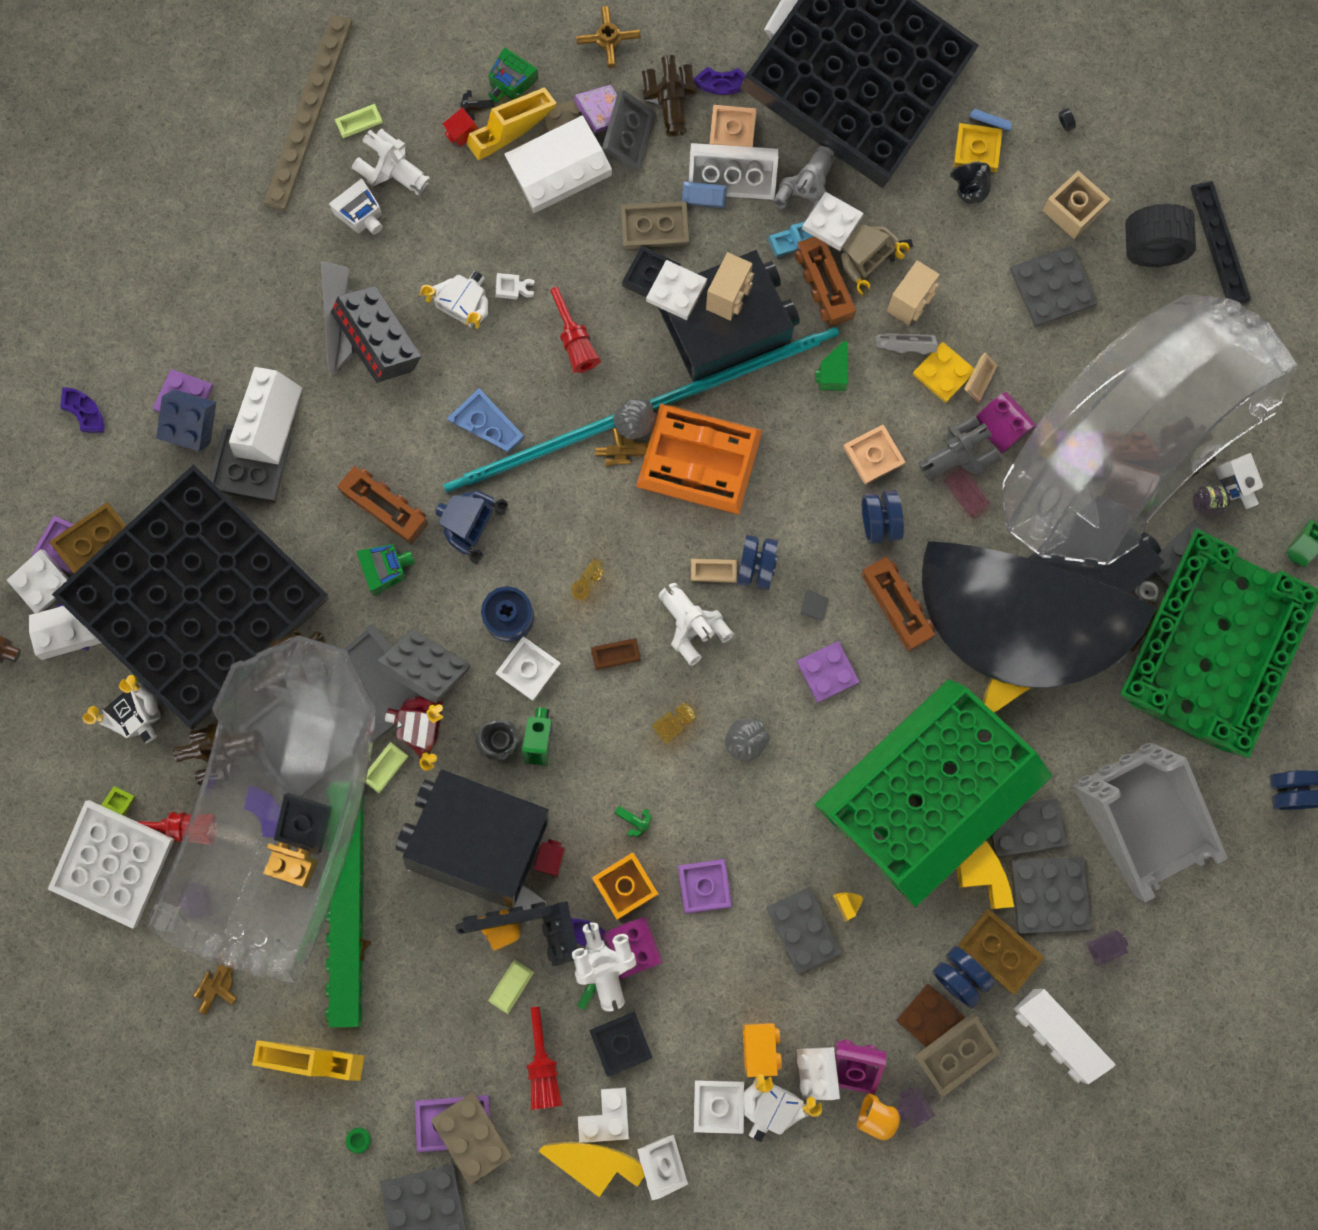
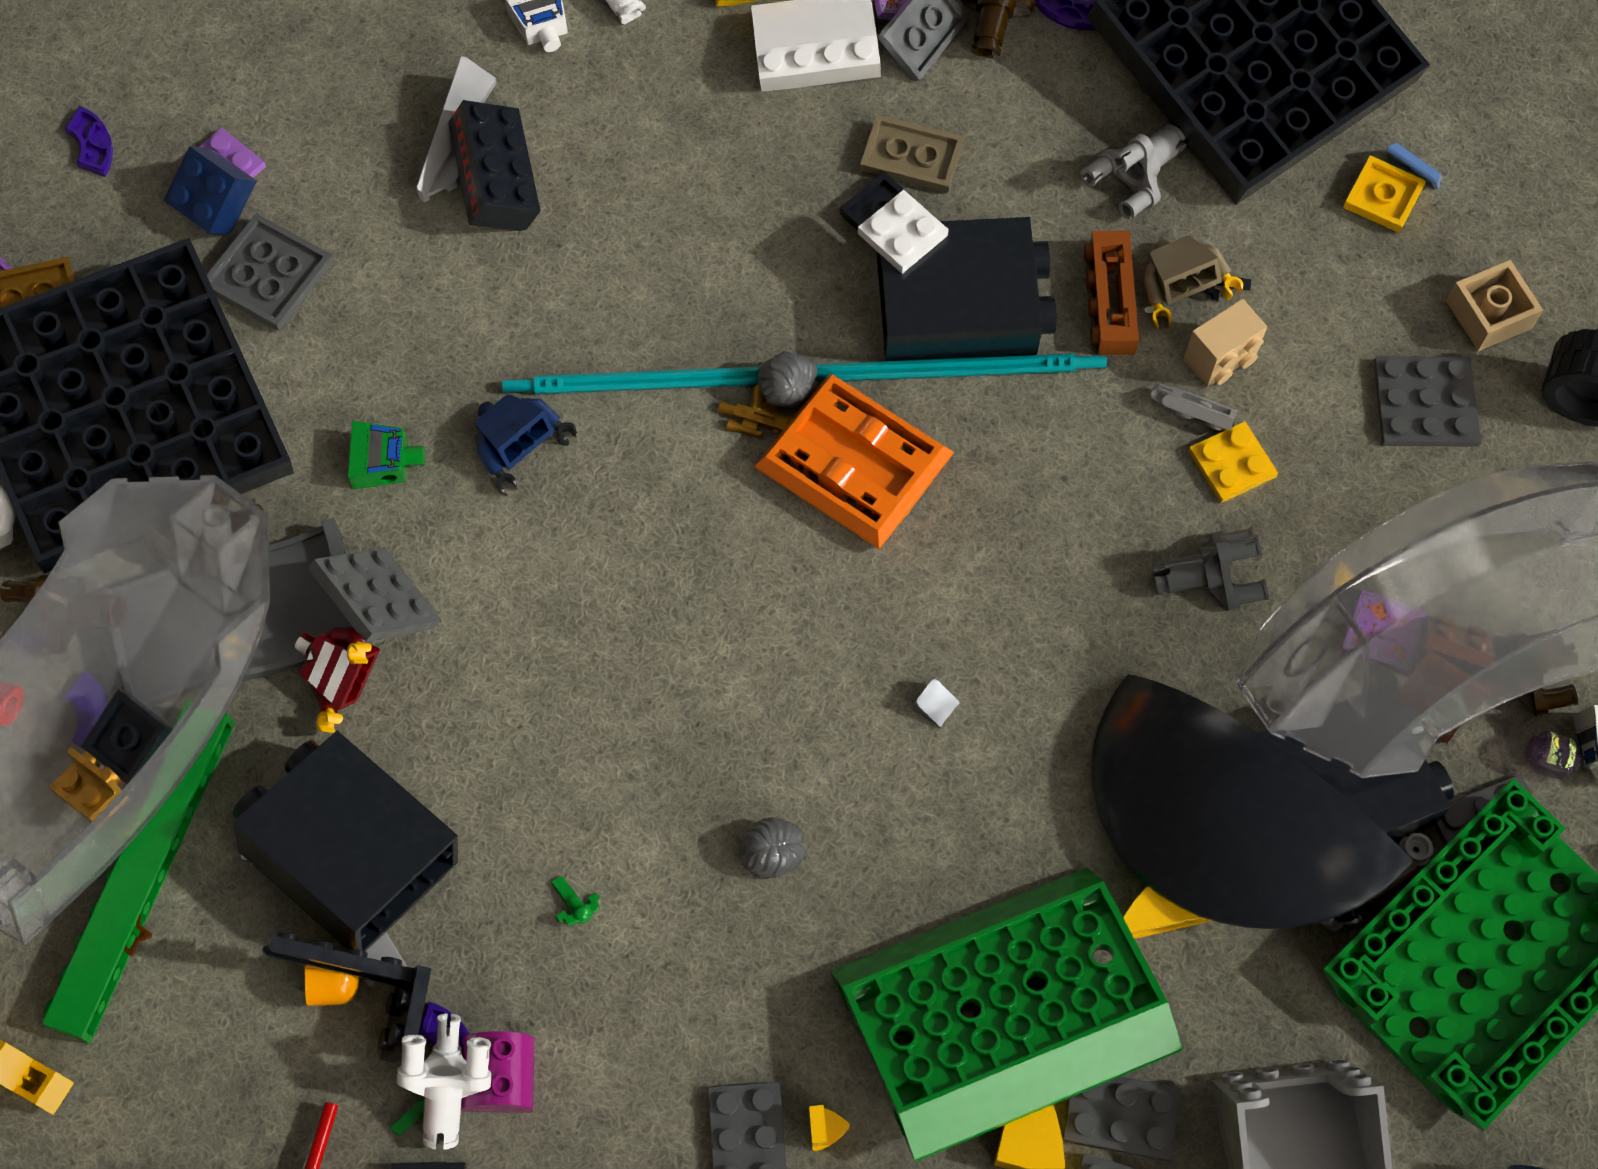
camera: 20 degrees right, 10 degrees down
(265, 416) = (310, 219): white slope -> none
(354, 482) = (390, 338): dark orange brick -> none
(385, 767) = (270, 711): yellowish green tile -> none
(460, 298) = (621, 159): white torso -> none
(486, 421) = (592, 321): medium blue wing -> none
(497, 739) = (433, 726): dark grey hair -> none
(504, 601) = (515, 569): dark blue wheel -> none
(509, 286) = (692, 167): white plate -> none
(511, 986) = (312, 1066): yellowish green tile -> none
(528, 668) = (514, 651): white plate -> none
(538, 738) = (486, 744): green torso -> none
(550, 858) = (437, 909): dark red brick -> none
(575, 339) = (750, 258): red piece -> none
(592, 573) = (649, 556): clear yellow plate -> none
(615, 654) = (639, 673): reddish brown tile -> none
(625, 886) = (522, 984): light orange brick -> none
(669, 727) = (672, 793): clear yellow plate -> none
(692, 622) = (758, 666): white wheel -> none
(704, 194) = (993, 137): medium blue tile -> none
(704, 886) = (634, 1028): medium lavender tile -> none
(713, 570) = (816, 611): tan tile -> none
(729, 286) = (972, 245): tan brick -> none
(732, 126) = (1062, 69): light nougat plate -> none
(744, 170) = (1041, 120): white slope -> none
(758, 562) = (877, 616): dark blue wheel -> none
(786, 241) = (1077, 229): medium azure slope -> none
(827, 672) = (920, 799): medium lavender plate -> none
(832, 221) = (1149, 219): white plate -> none
(834, 369) = (1080, 407): green slope -> none
(874, 454) = (1095, 535): light nougat plate -> none
(882, 516) = (1078, 616): dark blue wheel -> none
(901, 589) = (1064, 793): dark orange brick -> none
(966, 492) = (1205, 628): clear pink tile -> none
(973, 181) = (1361, 232): black hair -> none
(980, 377) = (1281, 484): tan tile -> none
(1006, 422) = (1291, 550): magenta brick -> none
(1067, 120) = (1520, 197): black tile -> none

